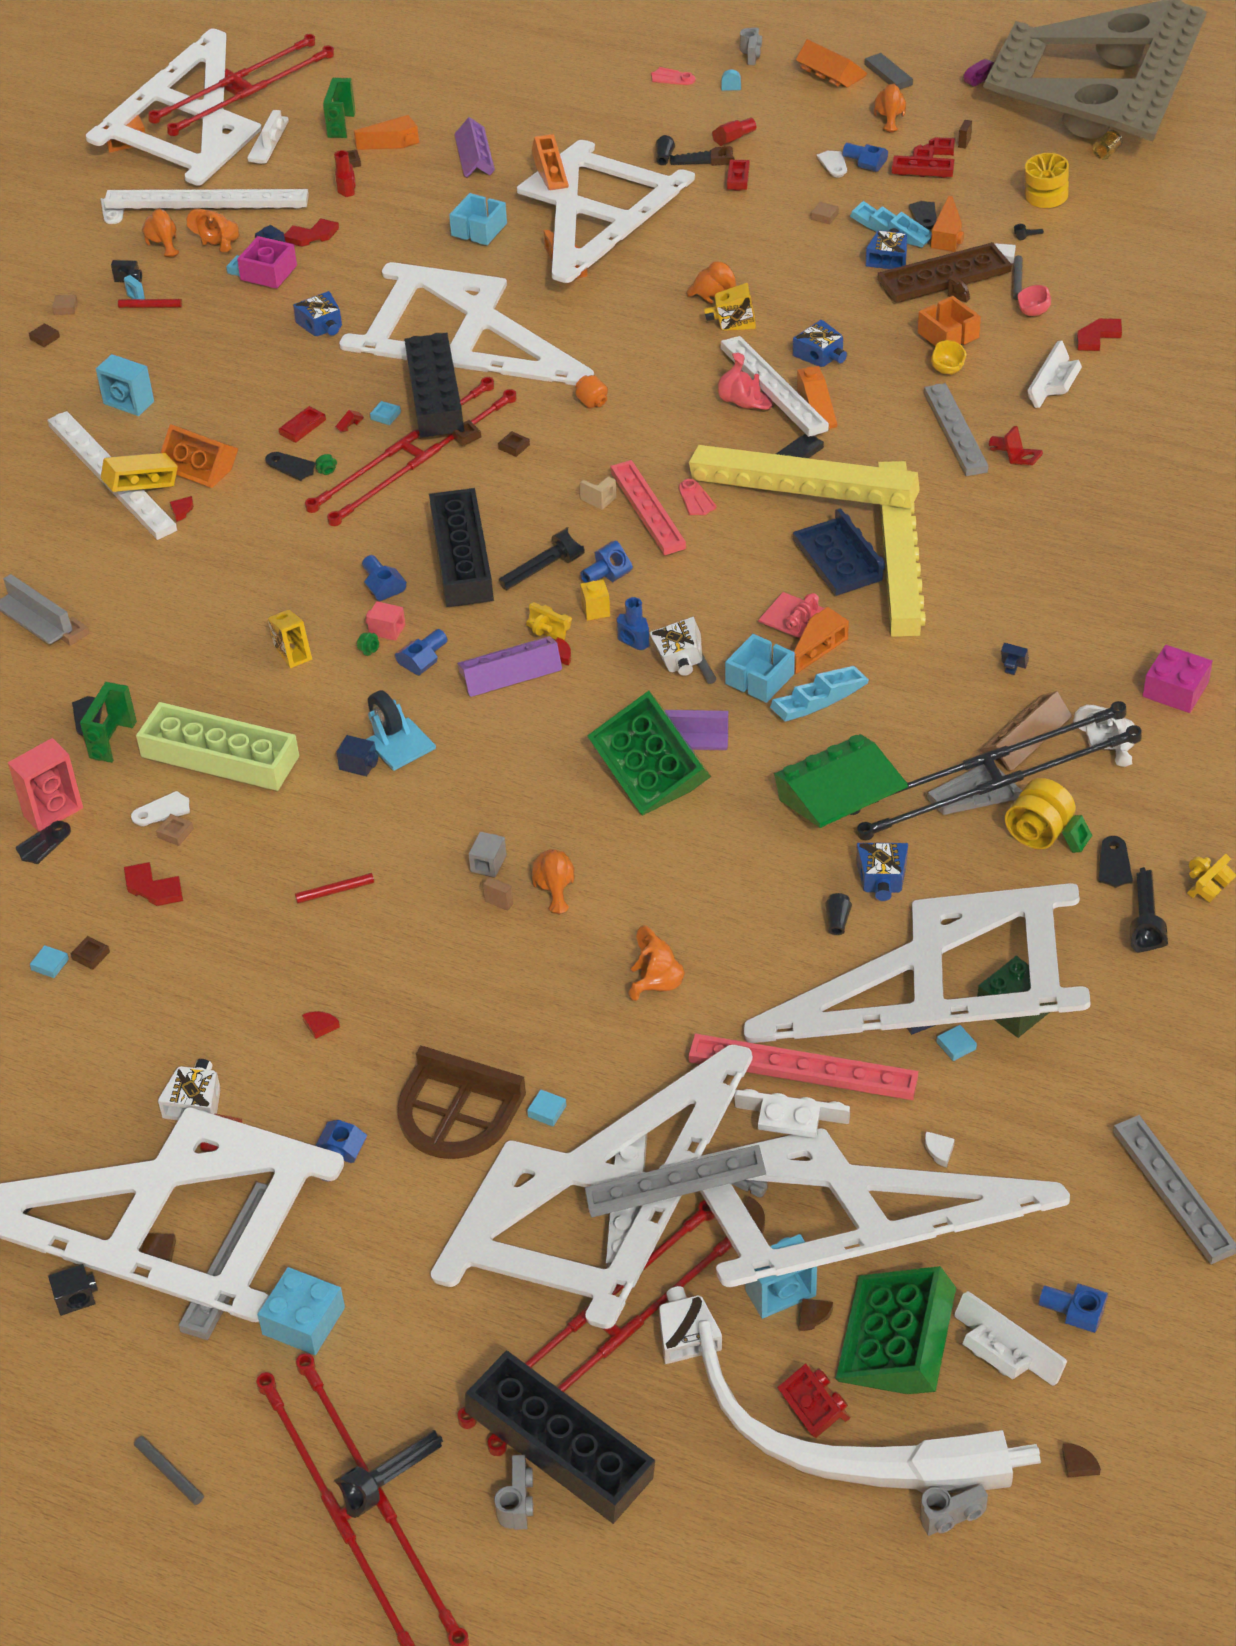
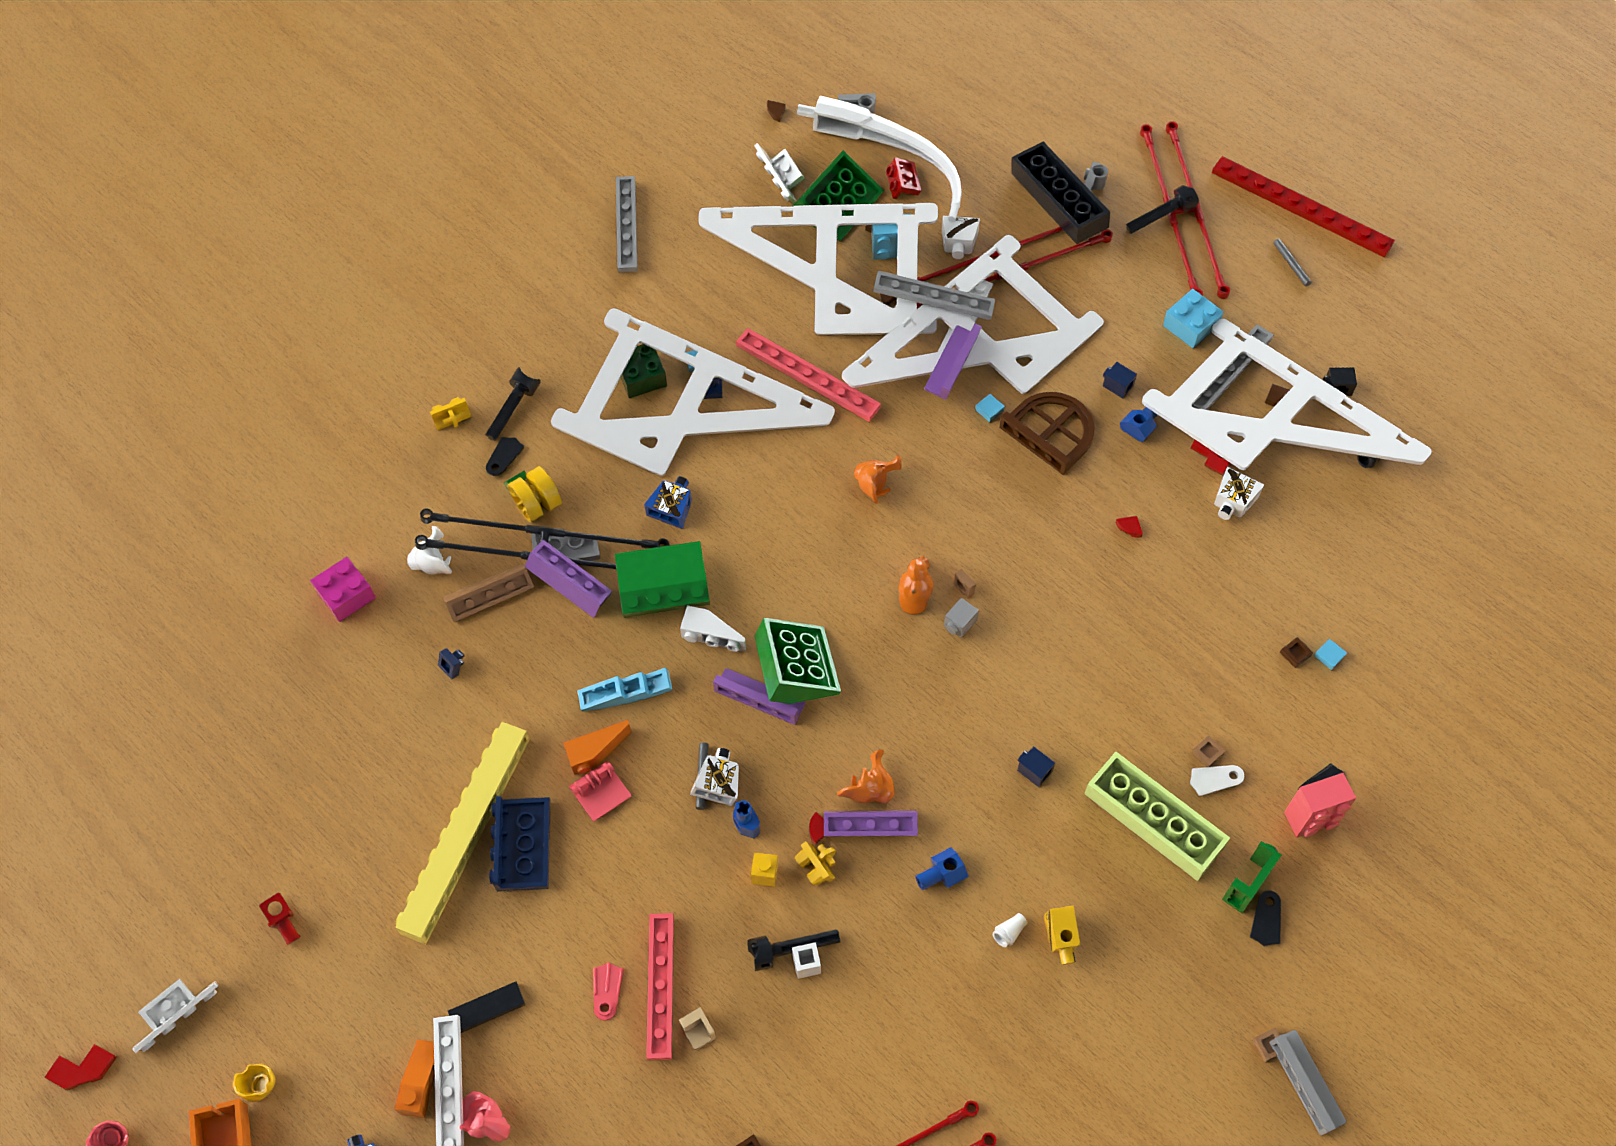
camera: 160 degrees left, 15 degrees up
(158, 892) = (1246, 705): red tile -> none
(169, 1580) = (1303, 206): none -> red plate
(334, 888) = (1089, 643): red bar -> none
(340, 630) = (1008, 931): none -> white cone
(368, 643) = (988, 901): green plate -> none
(382, 580) = (952, 991): blue piece -> none
(383, 1191) = (1119, 379): none -> dark blue brick
(385, 620) = (964, 924): coral brick -> none
(395, 738) = (994, 774): medium azure plate -> none
(461, 547) = (862, 991): black brick -> none
(521, 547) = (806, 960): none -> white brick
(525, 685) = (872, 786): none -> orange piece
(603, 565) = (730, 916): blue piece -> none
(614, 1123) = (952, 360): none -> medium lavender panel
(753, 670) = (660, 723): medium azure piece -> none
(755, 764) = (707, 628): none -> white slope
(790, 1114) = (830, 340): white bracket -> none
(805, 476) = (502, 944): light yellow brick -> none
(838, 910) = (721, 481): black cone -> none
(939, 1147) = (749, 296): white tile -> none
(941, 746) = (567, 578): none -> medium lavender panel
(956, 429) = (312, 982): light grey plate -> none
(1074, 1305) = (725, 177): blue piece -> none

